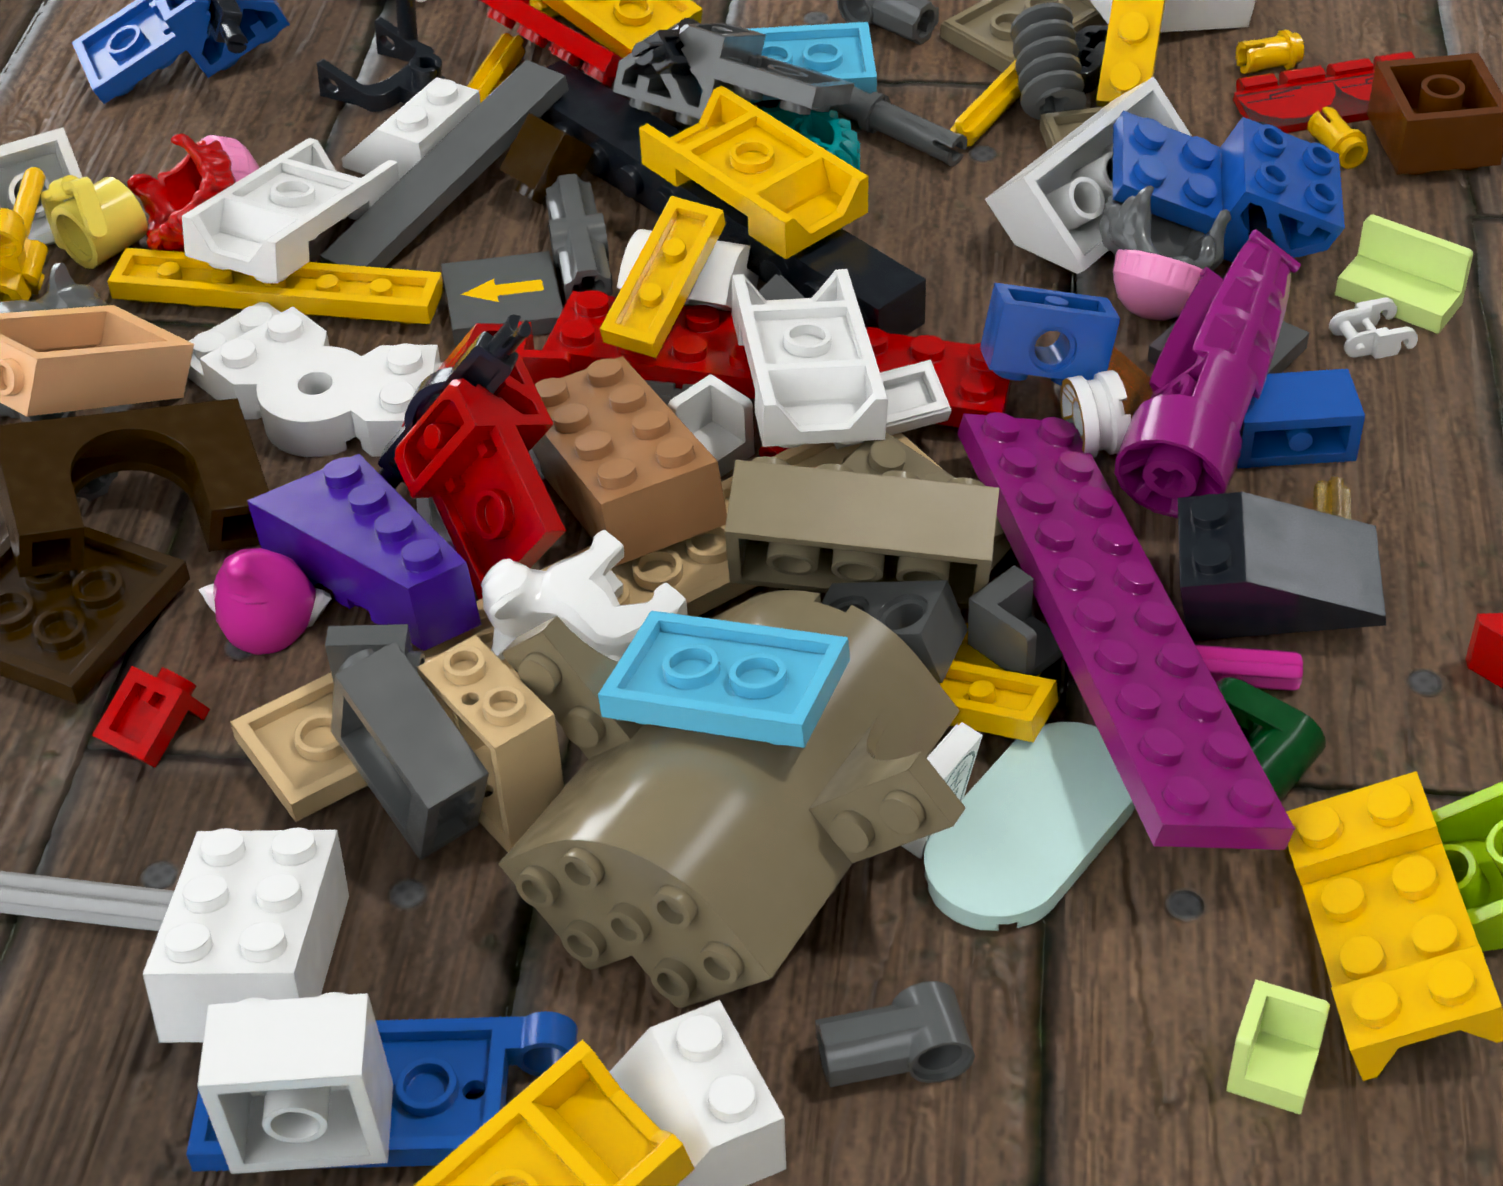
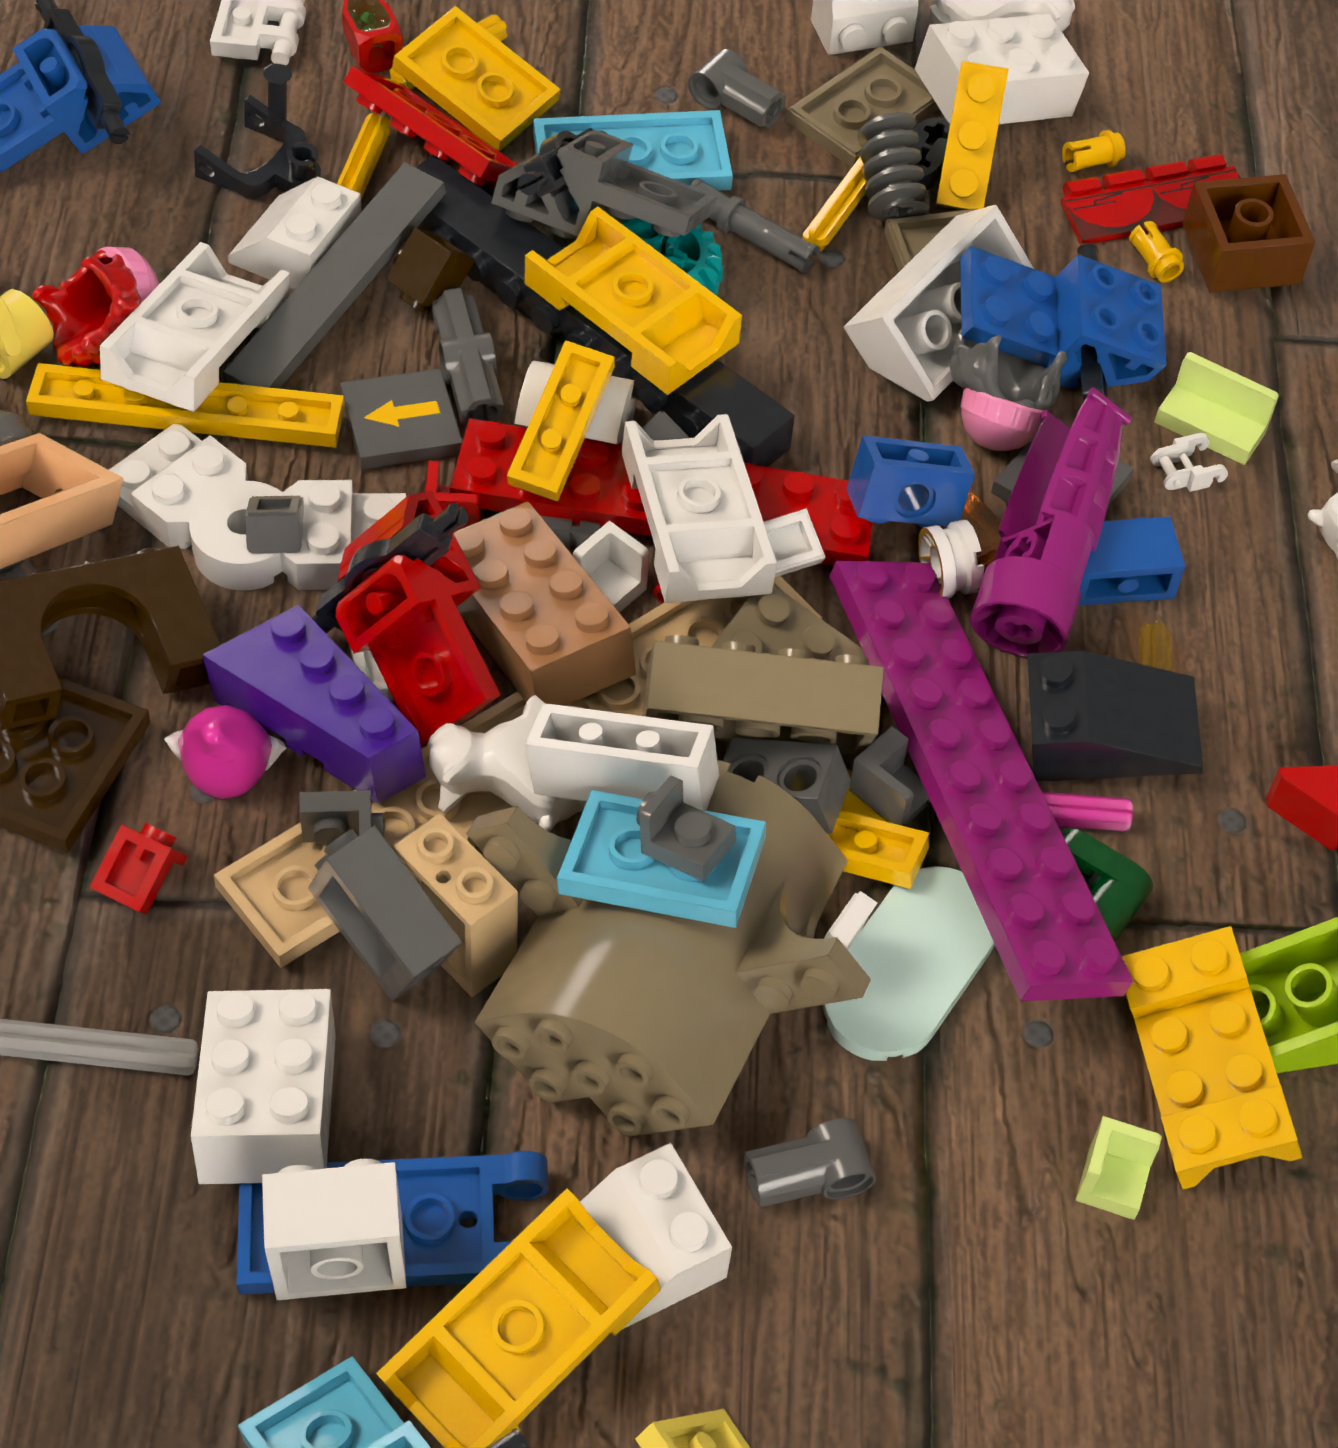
camera: 10 degrees left, 10 degrees up
(346, 383) = (274, 524): none -> dark grey slope
(688, 572) = (619, 754): none -> white brick
(744, 645) = (681, 833): none -> dark grey bracket

